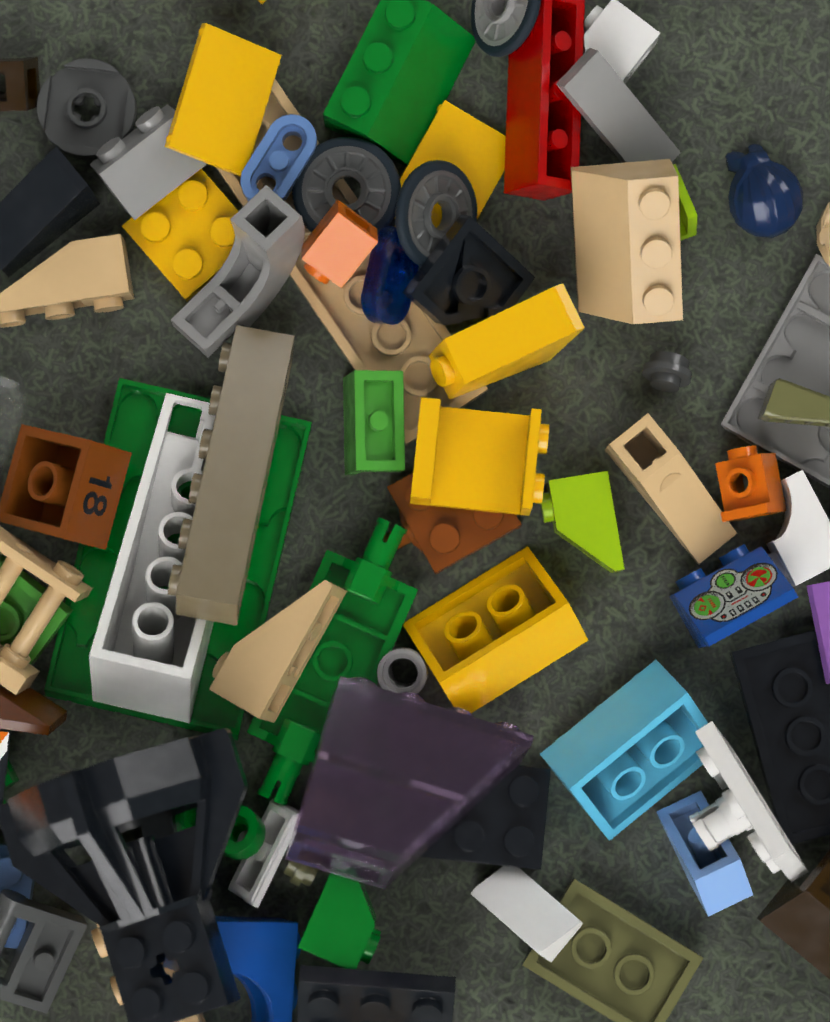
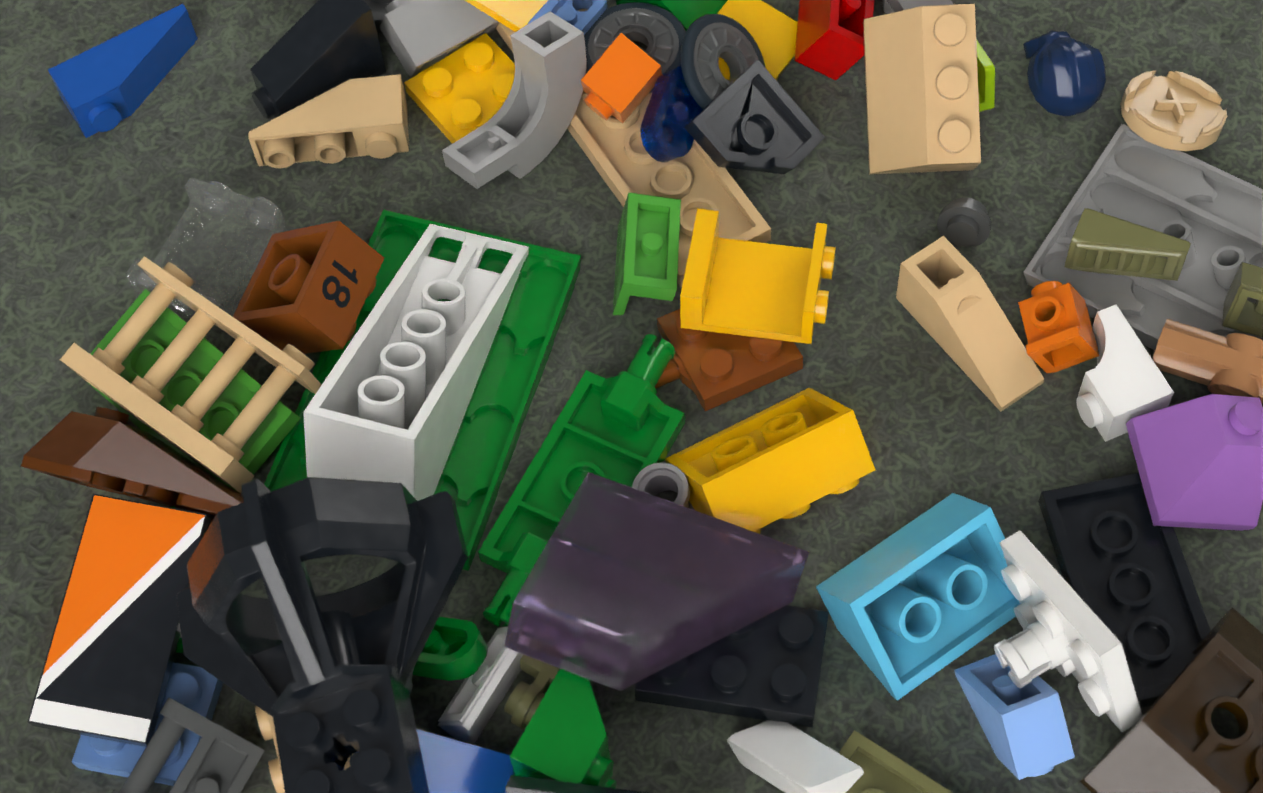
camera: 10 degrees right, 25 degrees down
(234, 475) = (486, 280): dark tan brick -> none
(270, 659) = (517, 459): tan slope -> none
(506, 342) = (793, 173): yellow slope -> none
(585, 517) = (873, 353): lime slope -> none
(731, 596) = (1041, 433): slope -> none

